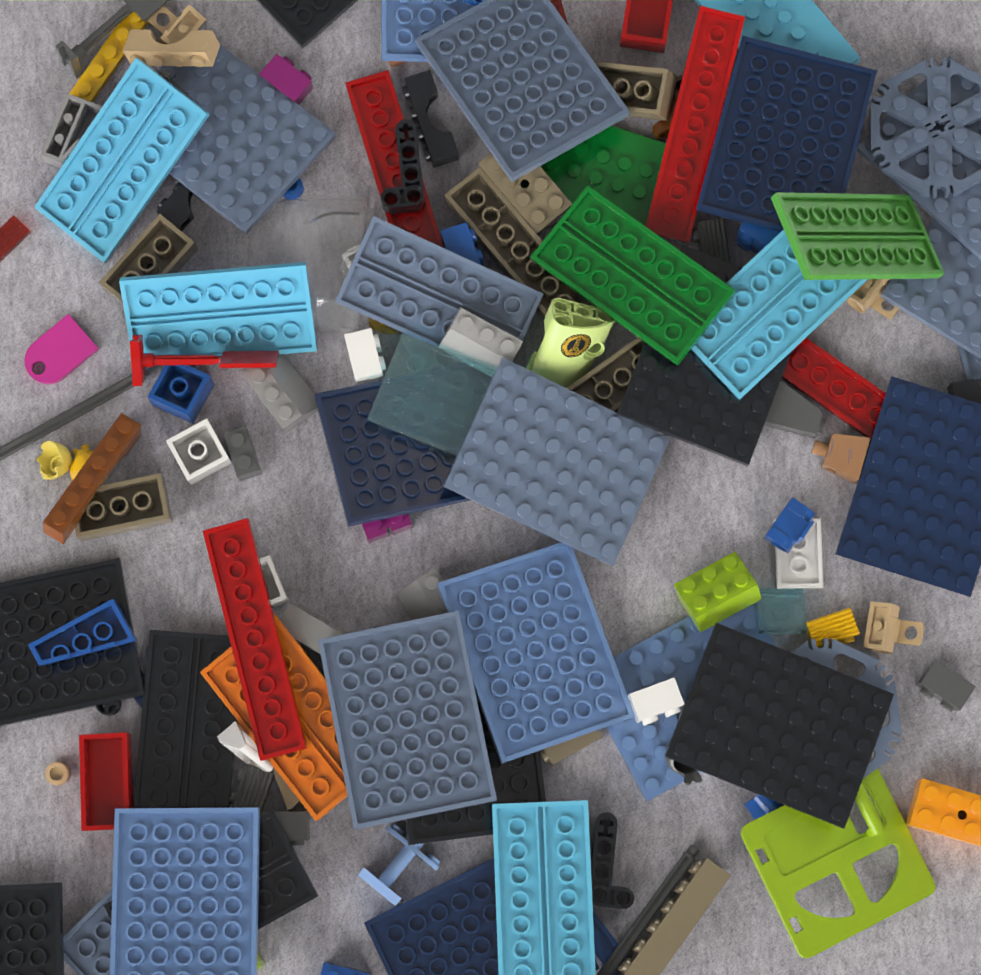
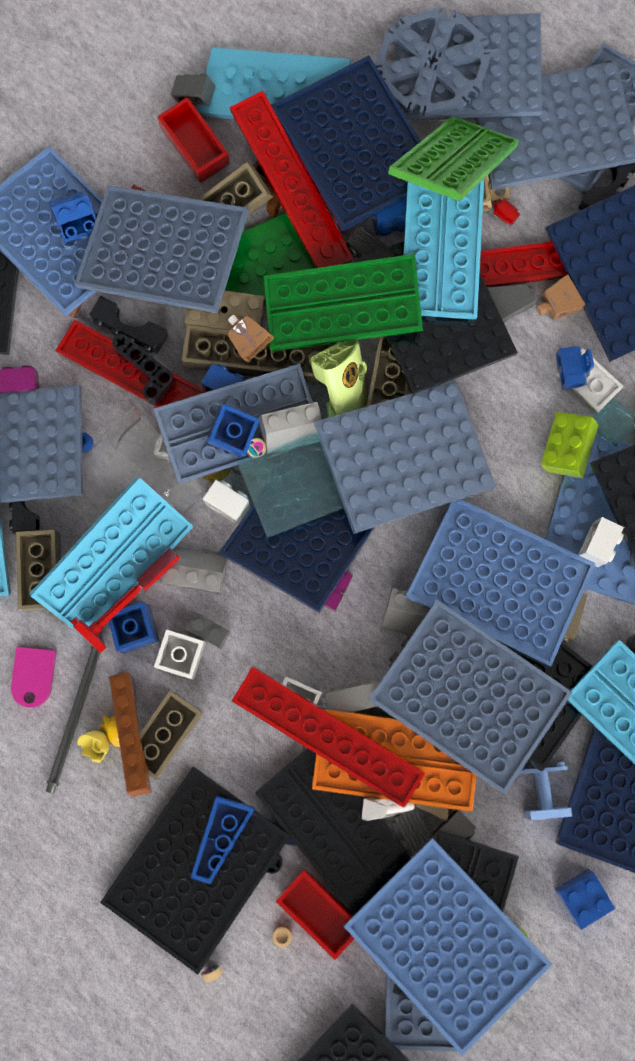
camera: 45 degrees left, 0 degrees up
(423, 298) = (232, 430): none -> blue brick
(432, 332) = (257, 448): none -> tile
(520, 227) = (248, 336): none -> medium nougat torso
(873, 328) = (506, 211): none -> red brick

